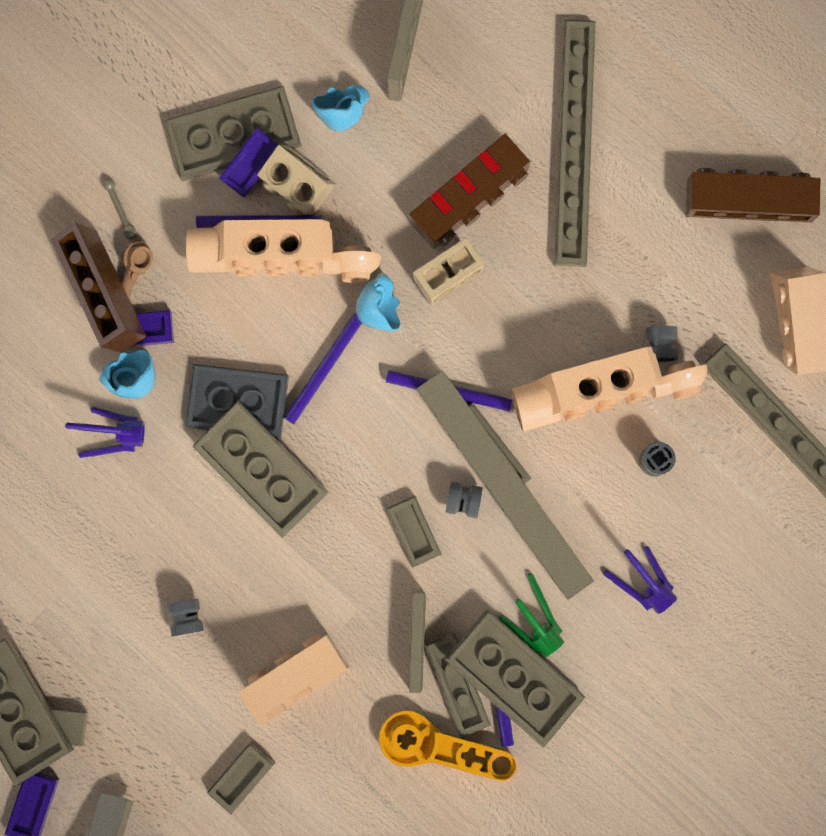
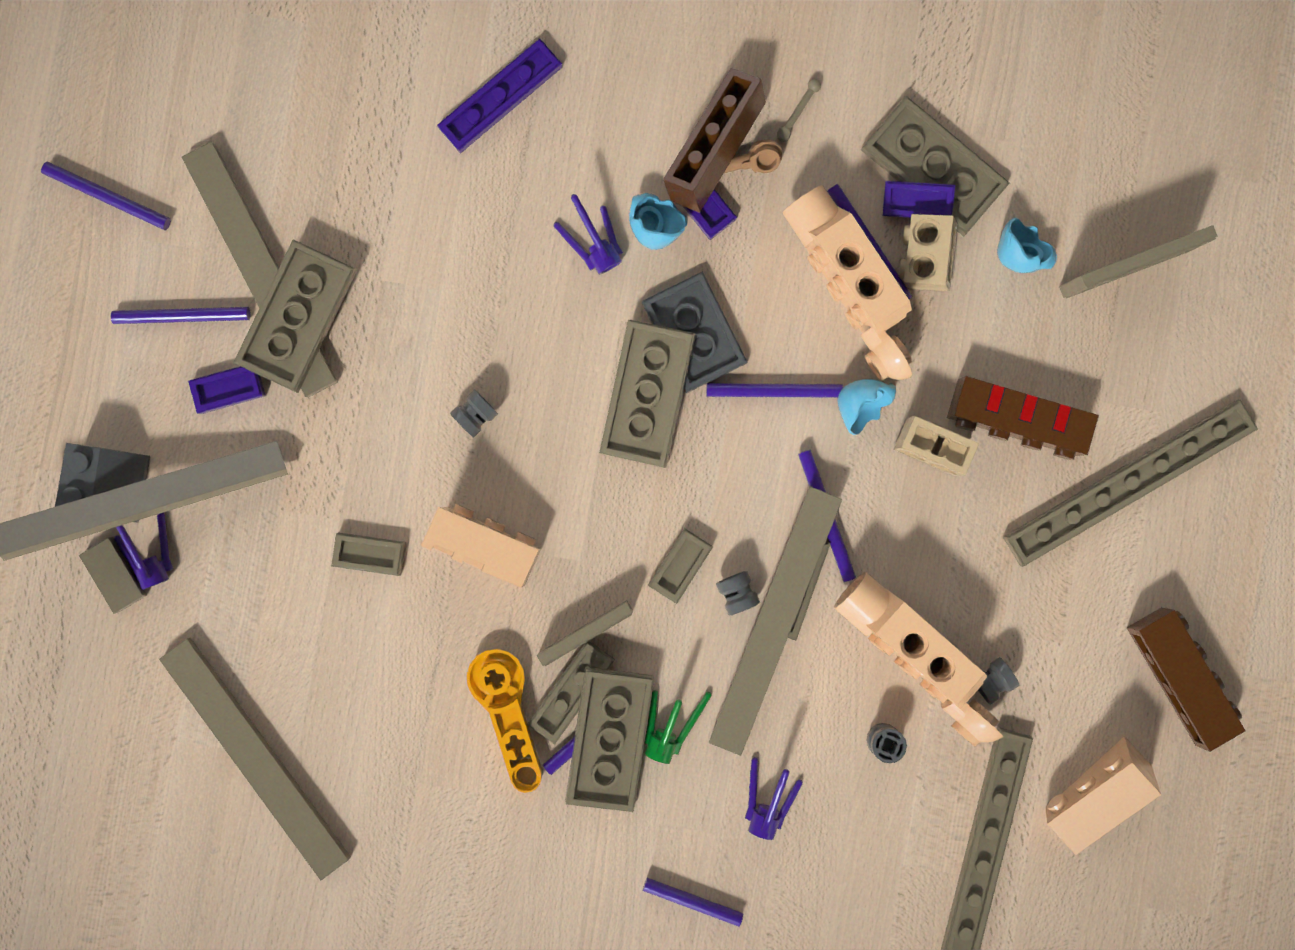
camera: 55 degrees right, 5 degrees up
(688, 696) = (693, 902): none -> dark purple bar

